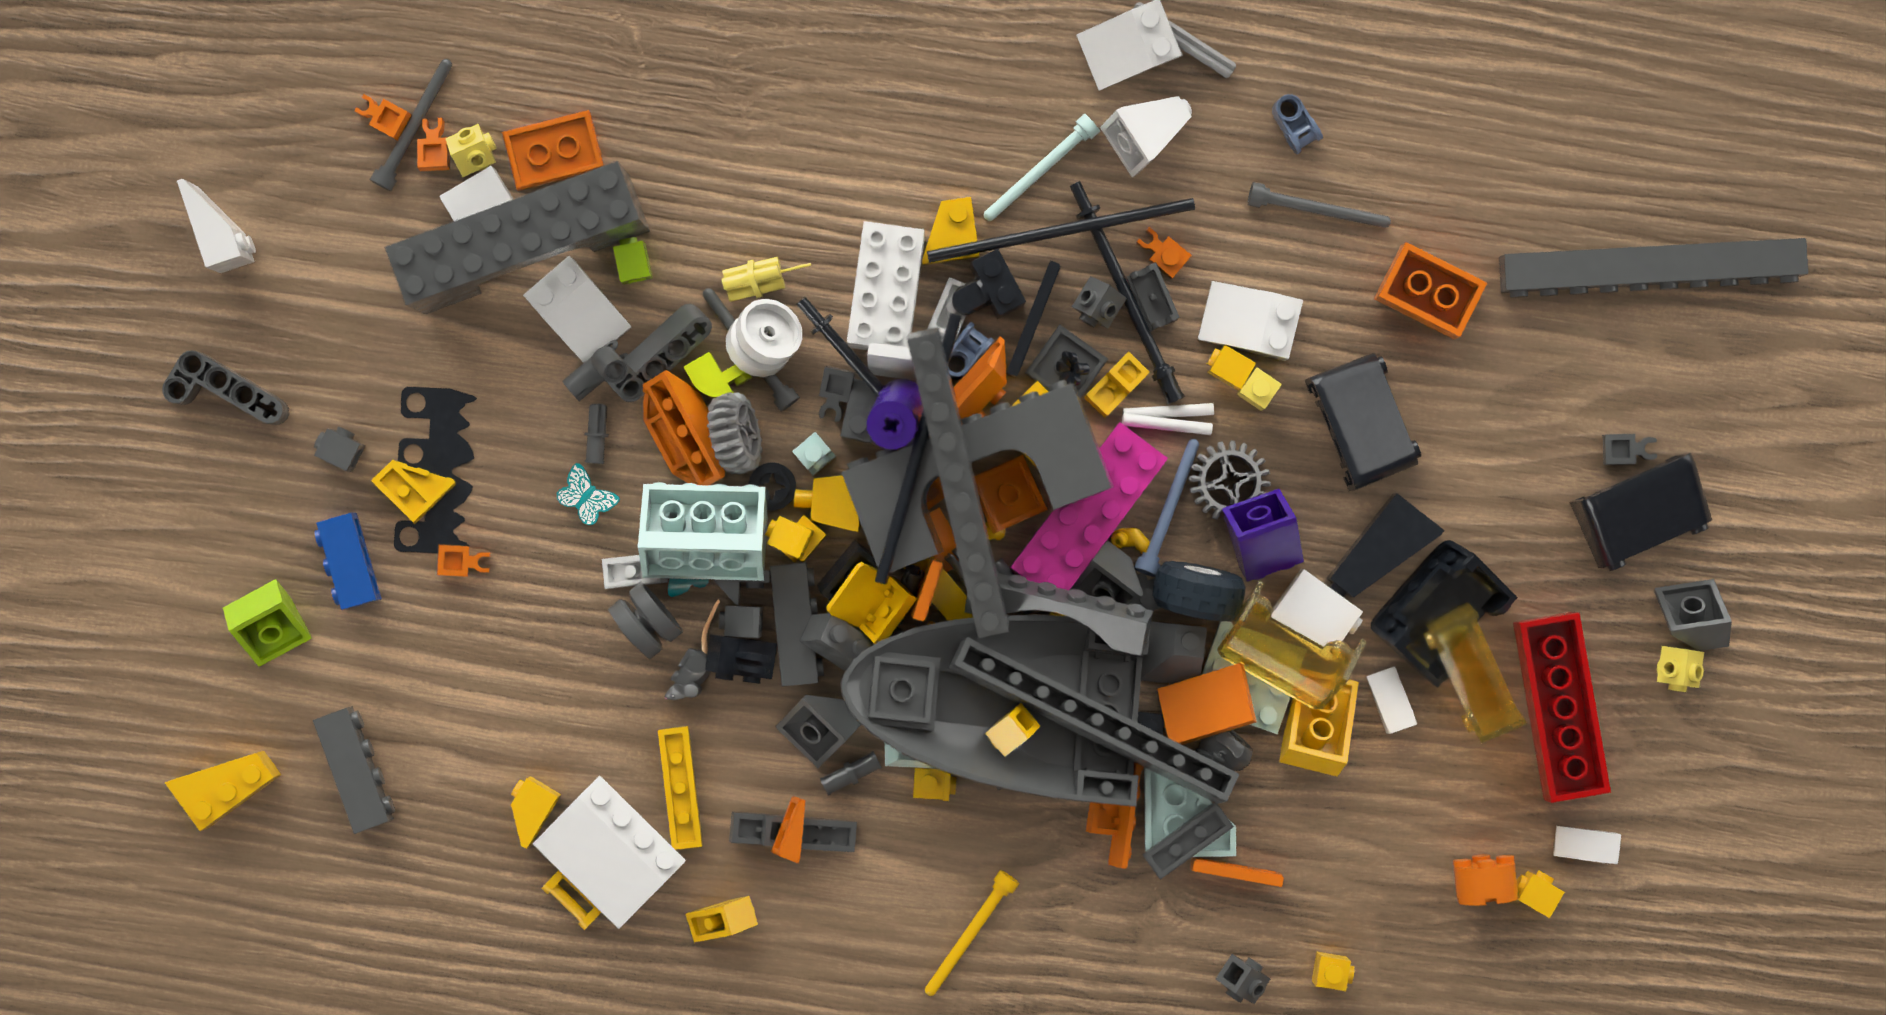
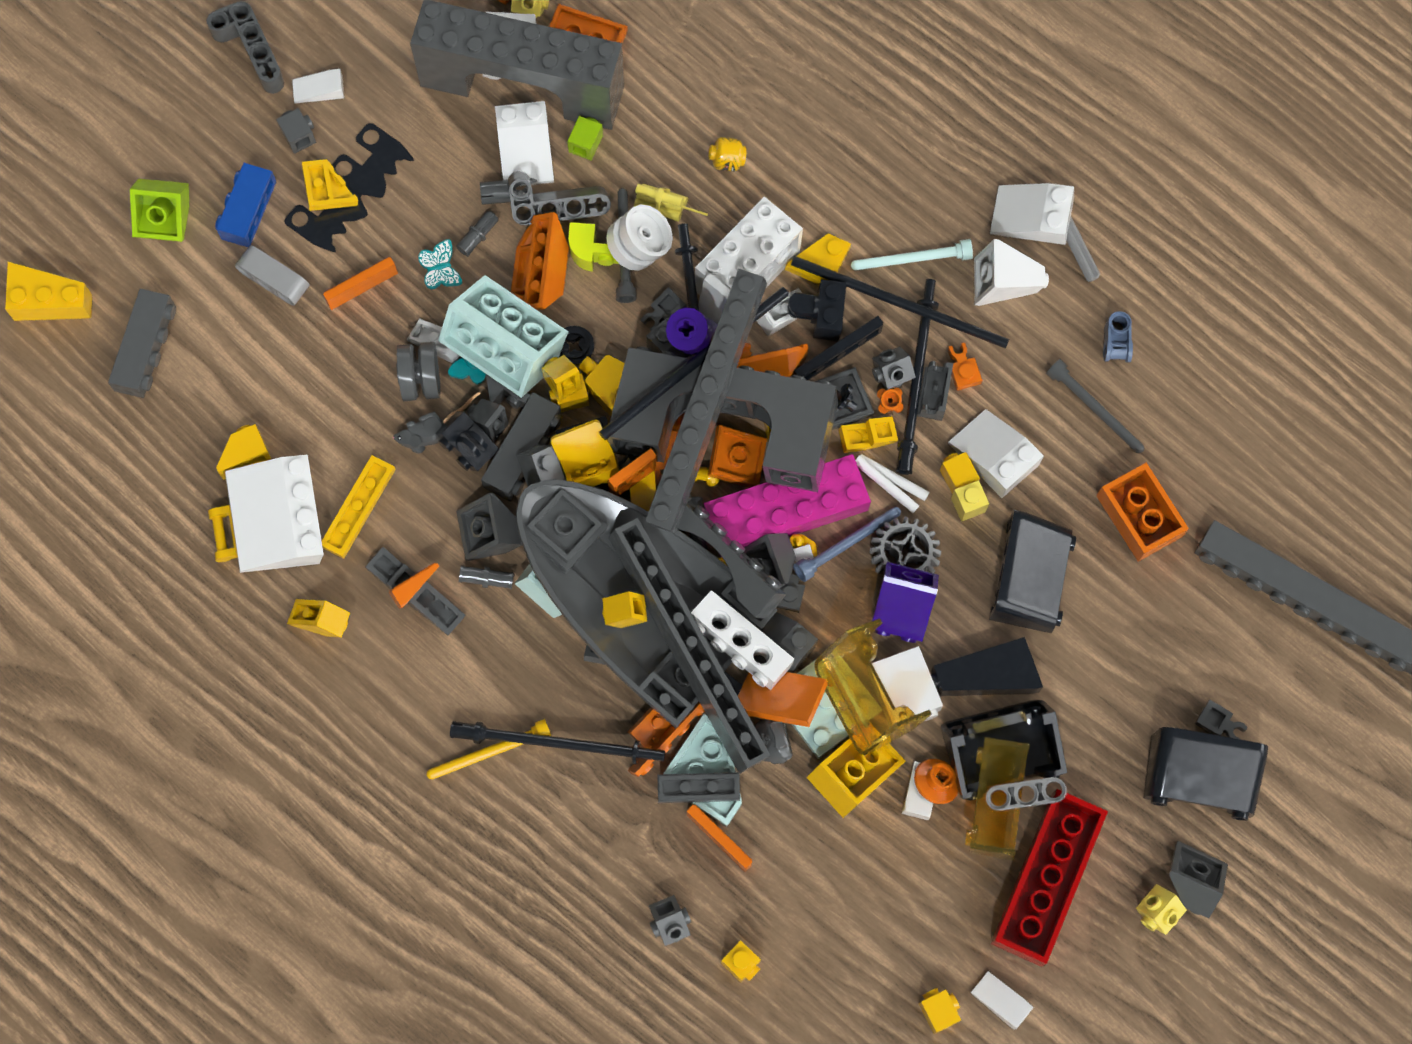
camera: 30 degrees right, 15 degrees down
(325, 386) = (319, 87): none -> white slope
(428, 615) = (272, 275): none -> light grey beam
(455, 560) = (320, 252): orange plate -> none
(520, 565) = (360, 283): none -> orange tile
(734, 433) = (573, 286): light grey gear -> none
(786, 184) = (727, 154): none -> yellow head
(814, 453) = (618, 339): light aqua brick -> none
(933, 784) = (540, 625): yellow bracket -> none
(950, 924) = (479, 732): none -> black bar
(969, 350) = (775, 338): sand blue piece -> none
(1123, 338) = (895, 395): none -> orange plate
(1135, 548) = (803, 553): none -> white window
(1184, 677) = (778, 662): none -> white brick
(1198, 591) = (828, 604): black wheel -> none
(1397, 694) = (930, 786): none -> orange piece
(1485, 880) = (906, 968): orange brick -> none
(1490, 663) = (1012, 792): none -> light grey beam

